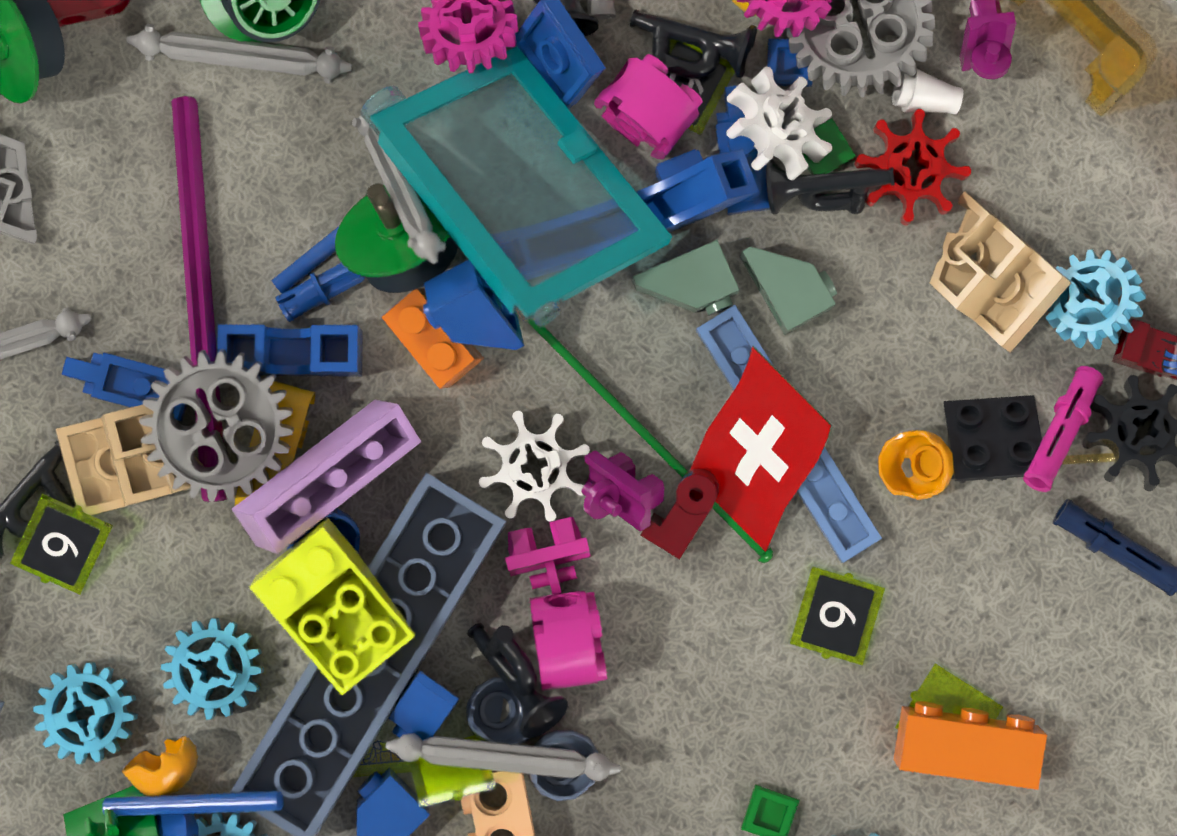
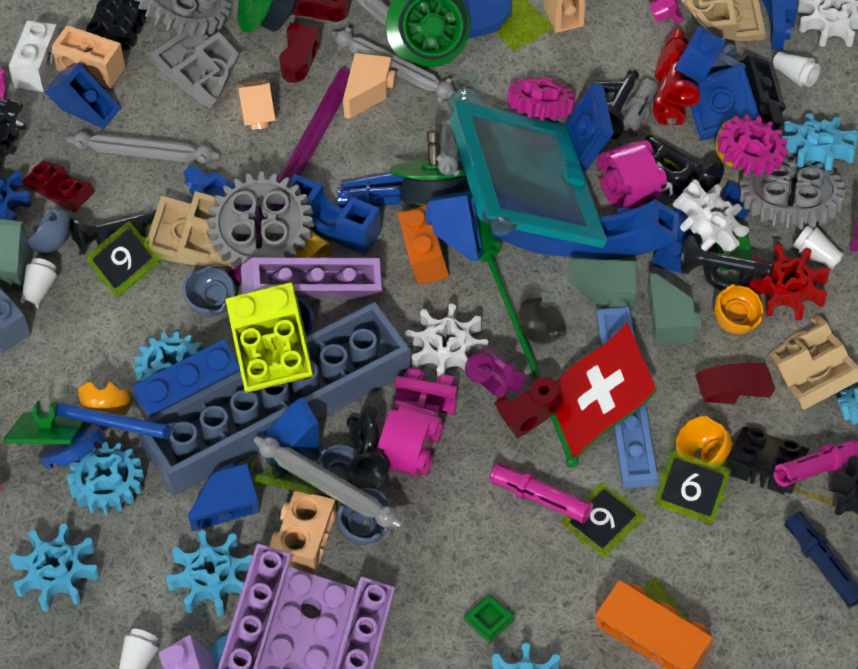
camera: 30 degrees right, 30 degrees down
(89, 734) = (77, 354): medium azure gear -> none
(90, 209) = (256, 103): none -> light nougat slope
(107, 110) = (302, 48): none -> dark red leg
(183, 549) = (209, 284): none -> sand blue hair
(224, 107) = (367, 83): none -> light nougat slope
(269, 681) = (184, 379): none -> blue arch
(656, 374) = (534, 320): none -> clear smoke hair
(759, 622) = (528, 487): none -> dark pink pin
(861, 231) = (738, 303): none -> light orange hair
(911, 351) = (730, 381): none -> dark red slope
(927, 527) = (692, 487): none -> piece

